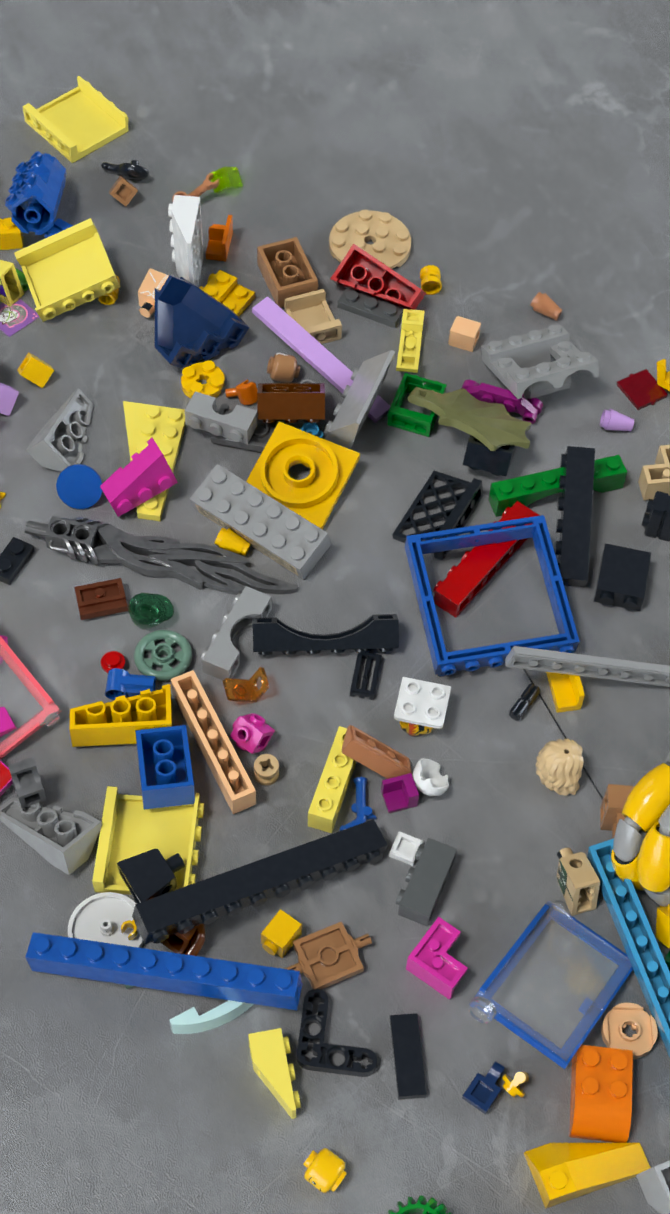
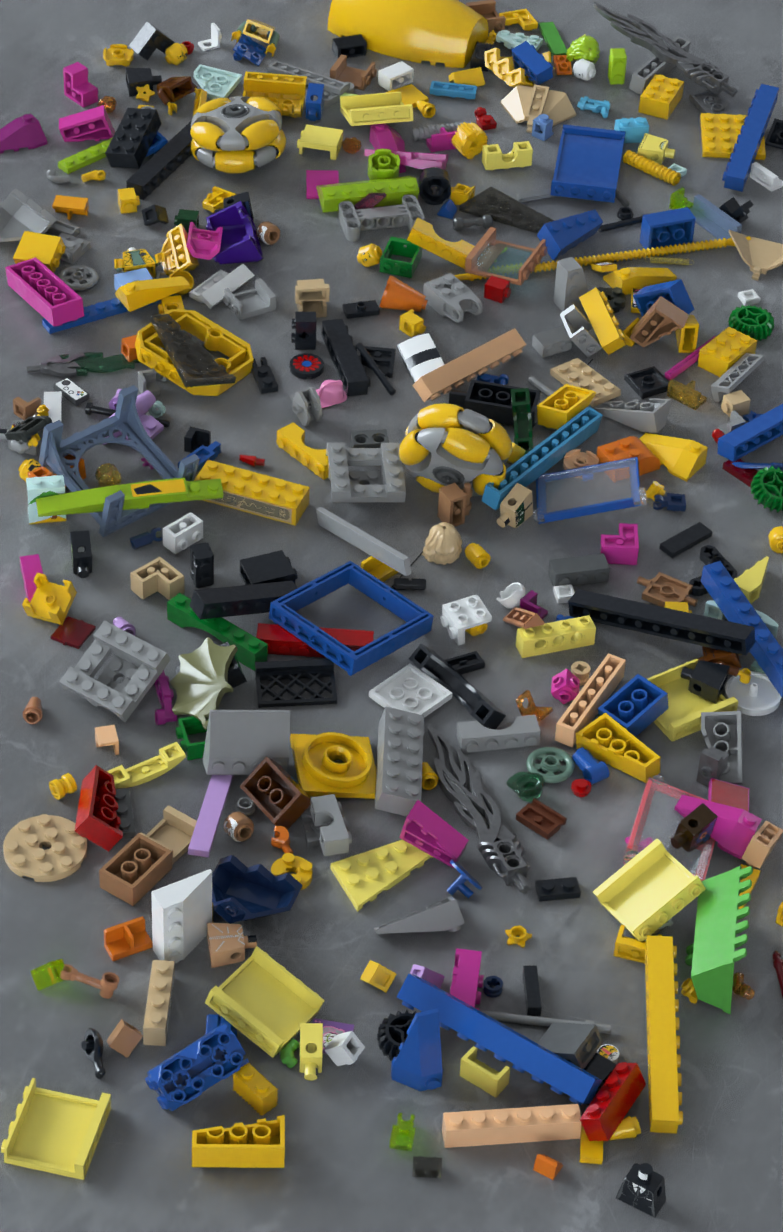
camera: 125 degrees left, 15 degrees down
(135, 222) = (159, 1003): none -> tan brick
(350, 594) = (411, 692): none -> white plate
(524, 793) = (477, 555): none -> yellow brick

